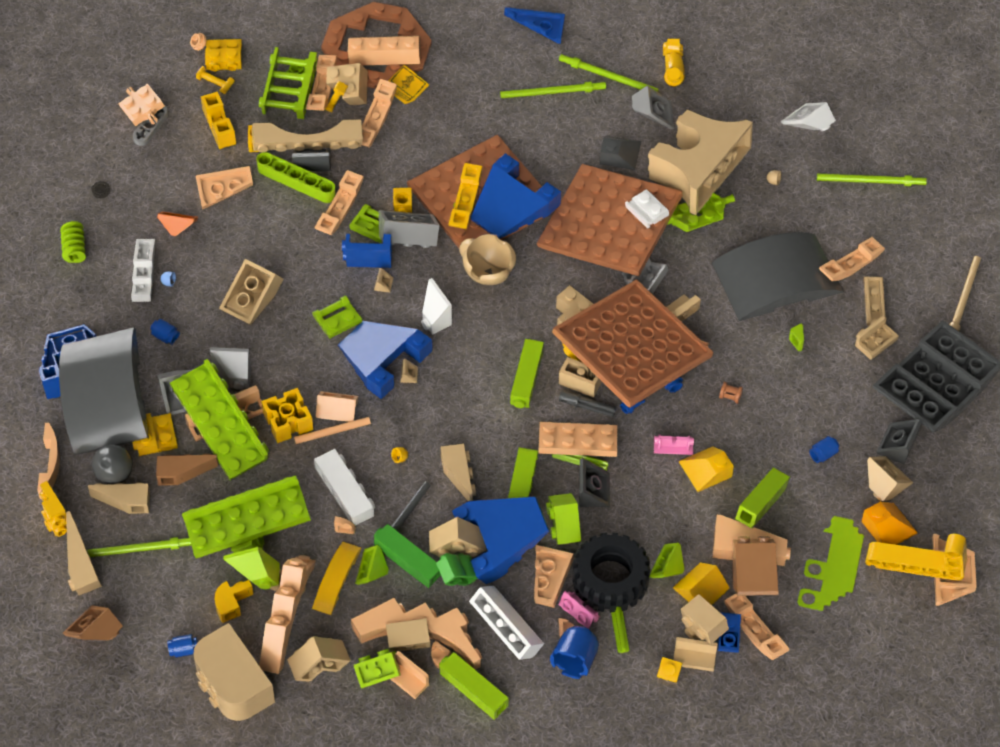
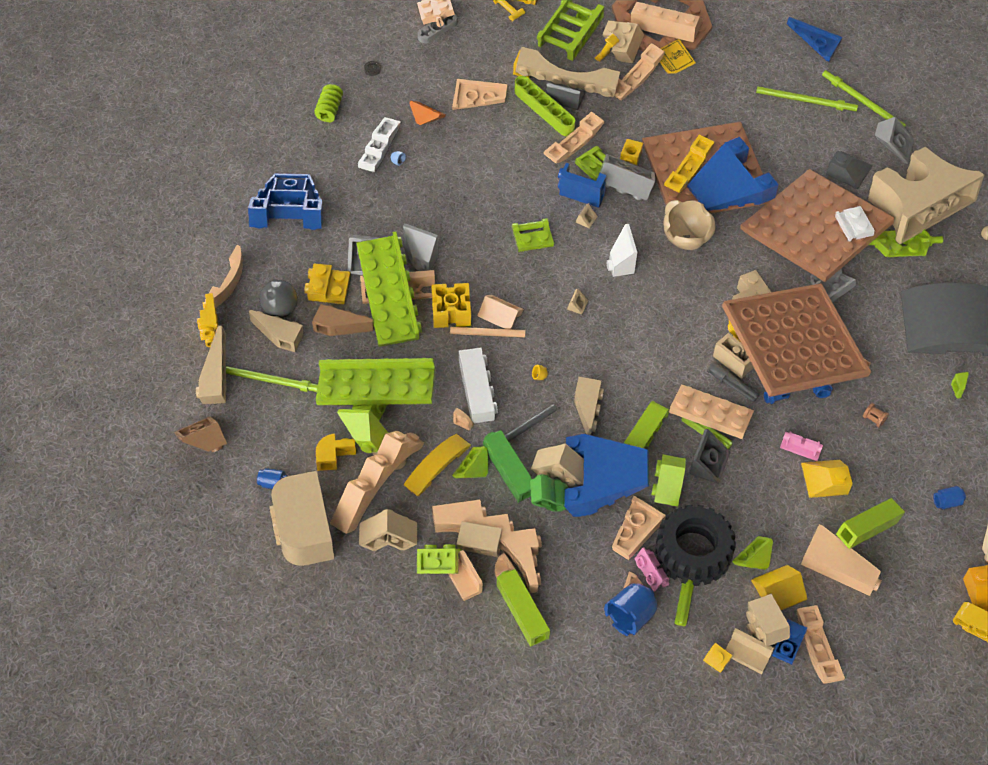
camera: 20 degrees right, 0 degrees up
(102, 391) = (295, 233): dark grey slope -> none
(164, 331) = (375, 201): blue brick -> none
(216, 118) = (496, 39): yellow arch -> none
(250, 292) = (464, 190): tan slope -> none
(321, 91) = (597, 41): light nougat slope -> none
(376, 346) = (558, 270): wedge -> none
(506, 622) = (576, 558): white brick -> none
(526, 373) = (686, 337): lime brick -> none
(674, 64) = (929, 105): yellow piece -> none
(684, 307) = (859, 323): tan panel -> none
(755, 566) = (838, 586): medium nougat slope -> none
(841, 564) = (926, 616): lime piece -> none

